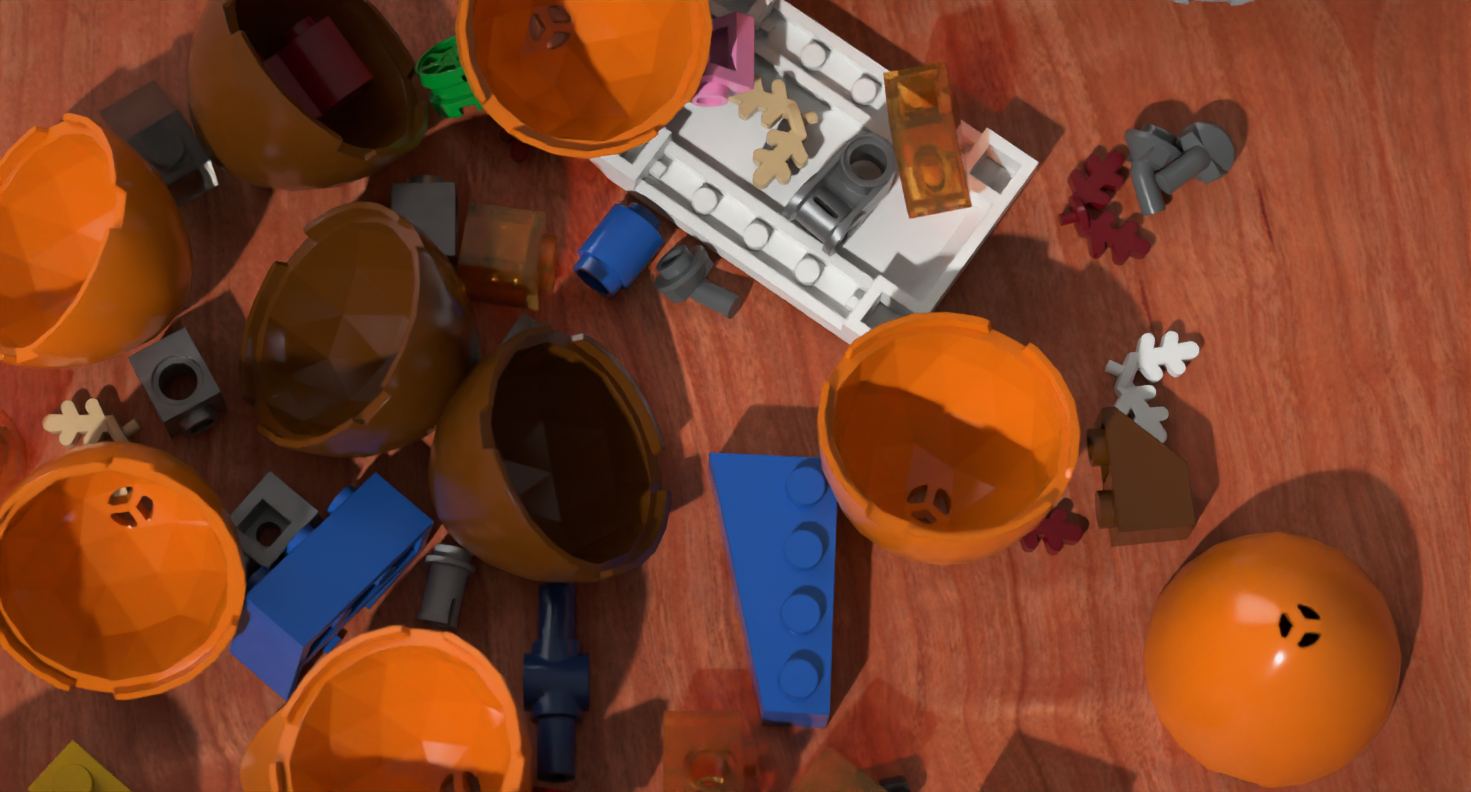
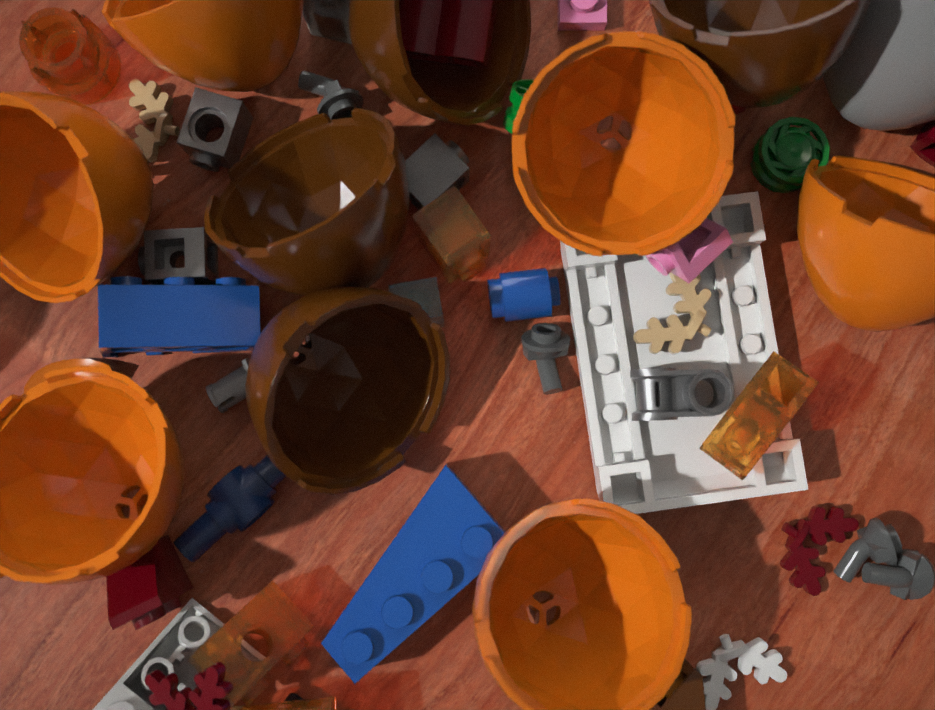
camera: 50 degrees right, 10 degrees up
(262, 245) = (336, 100): none -> dark grey plate

